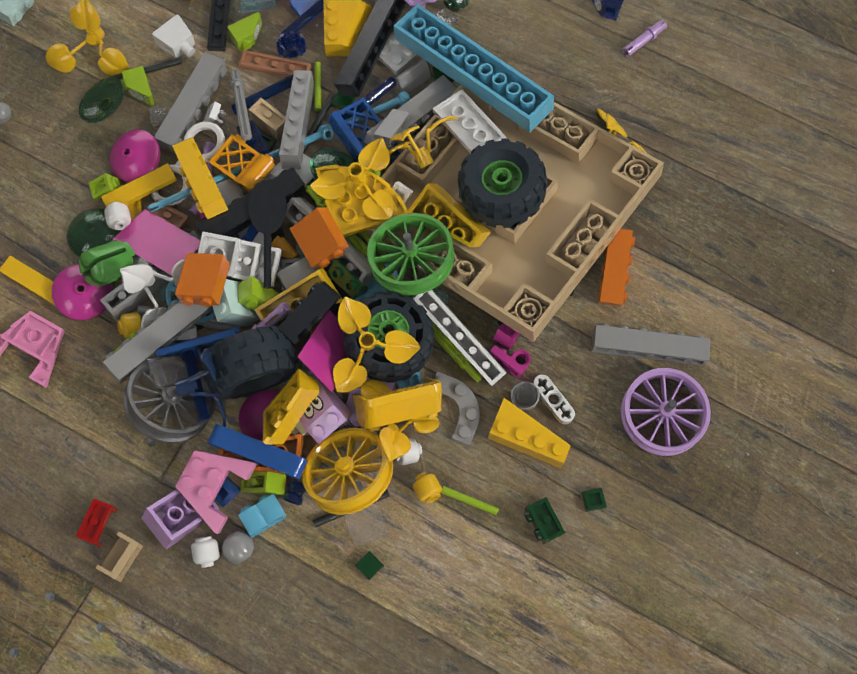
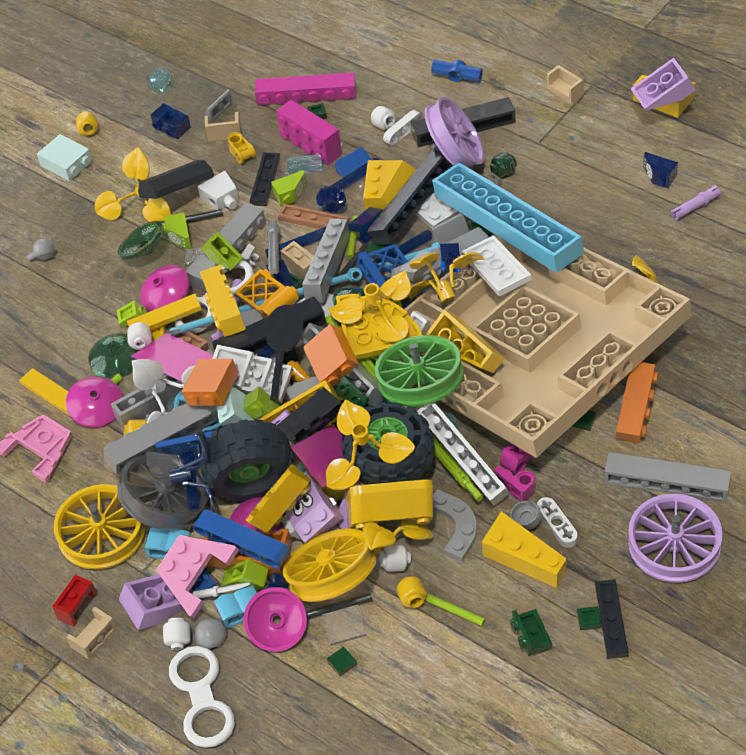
camera: 20 degrees right, 20 degrees down
(103, 262) = (115, 373): bright green cylinder -> none
(108, 438) = (97, 528): none -> yellow wheel
(128, 28) = (175, 179): none -> black piece
(179, 452) = (161, 541): none -> medium azure brick
(189, 115) = (221, 252): none -> lime slope
(237, 501) = (215, 591): none -> white piece
(239, 616) = (201, 696): none -> white bar
(297, 542) = (260, 622): none -> dark pink dish
(328, 71) = (363, 222): none -> clear blue panel
(420, 112) = (448, 253): none -> clear blue slope
(502, 183) = (518, 309): black wheel -> none
(614, 498) = (611, 619): none -> black tile

